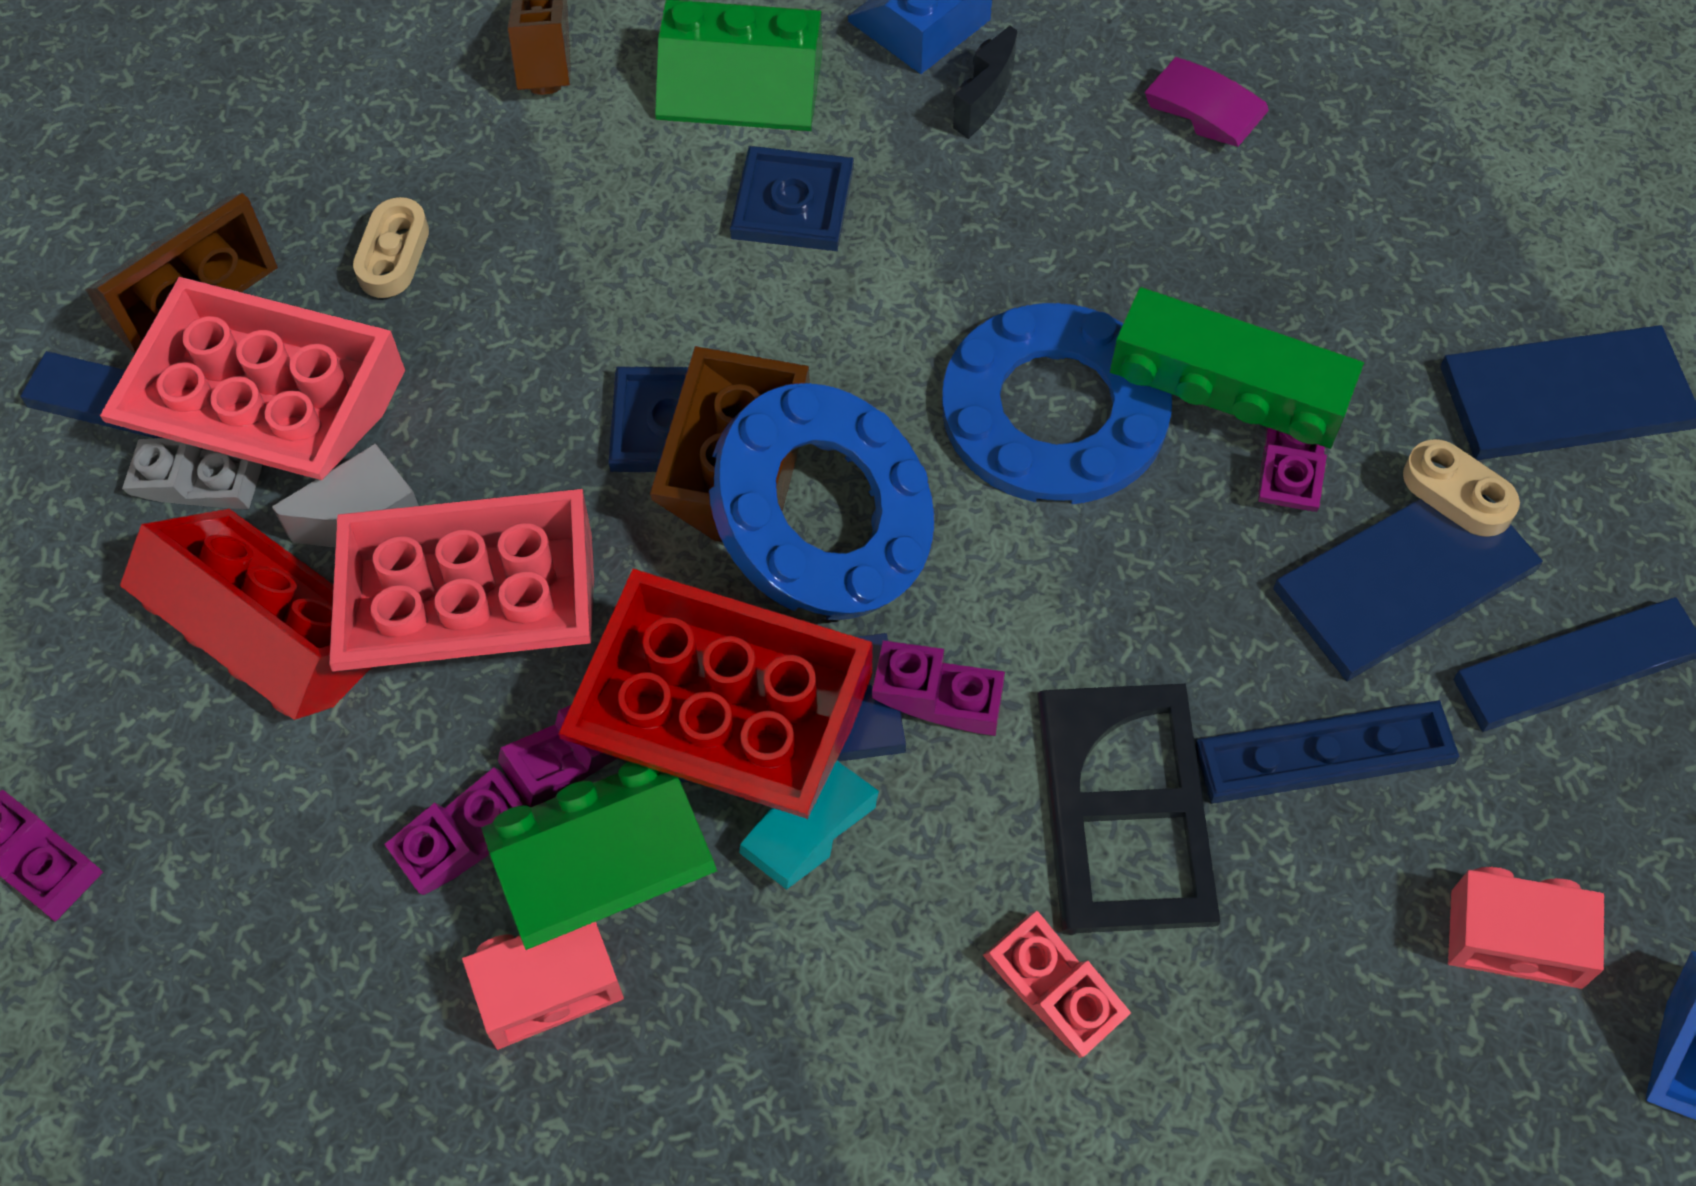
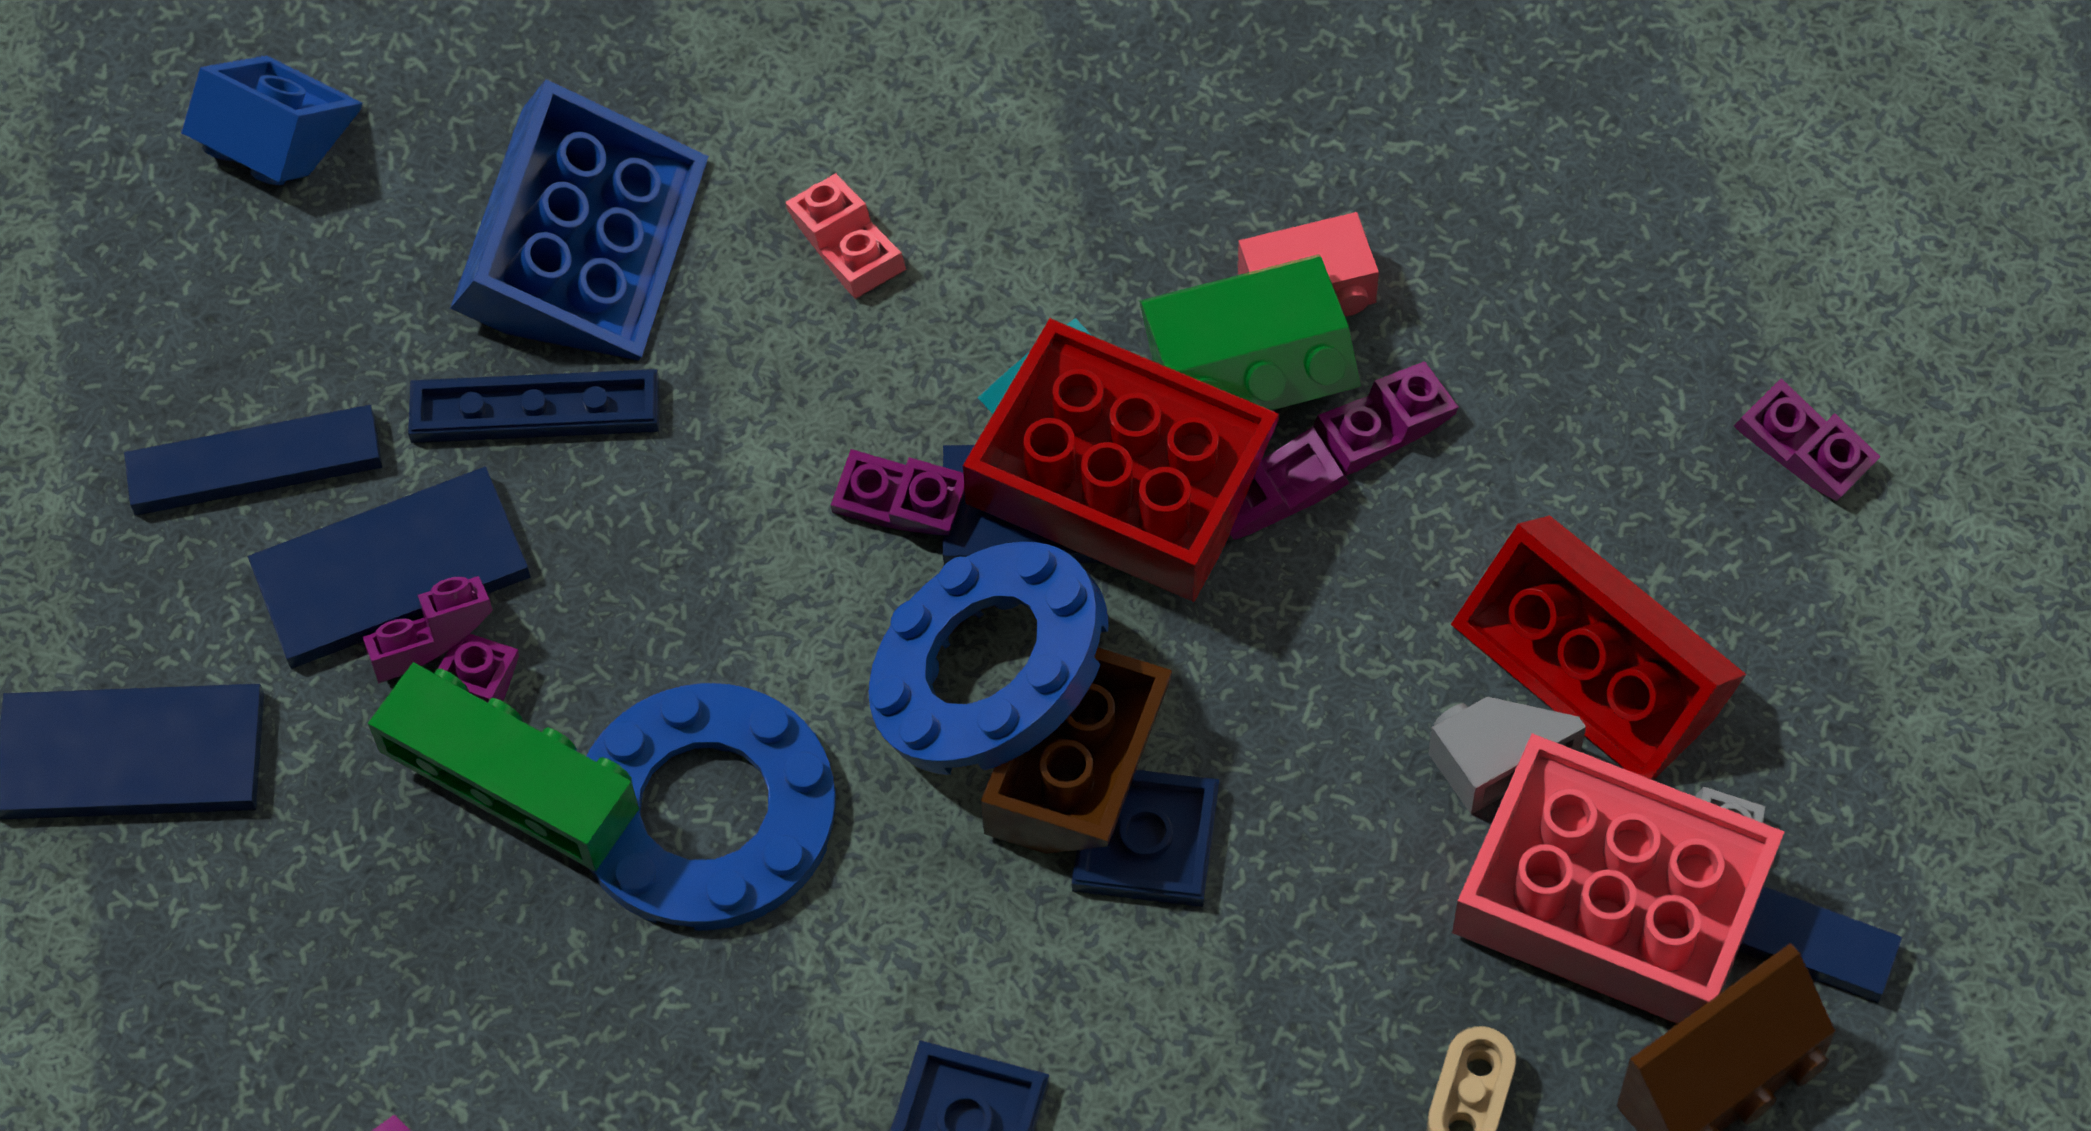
camera: 170 degrees left, 0 degrees up
(462, 580) = (1374, 604): coral slope -> none
(1070, 729) = (777, 454): black window -> none
(1345, 948) = (580, 227): none -> blue slope
(1348, 501) = (450, 614): none -> magenta slope
(1460, 486) = (299, 627): tan plate -> none
(1527, 927) = (412, 222): coral brick -> none

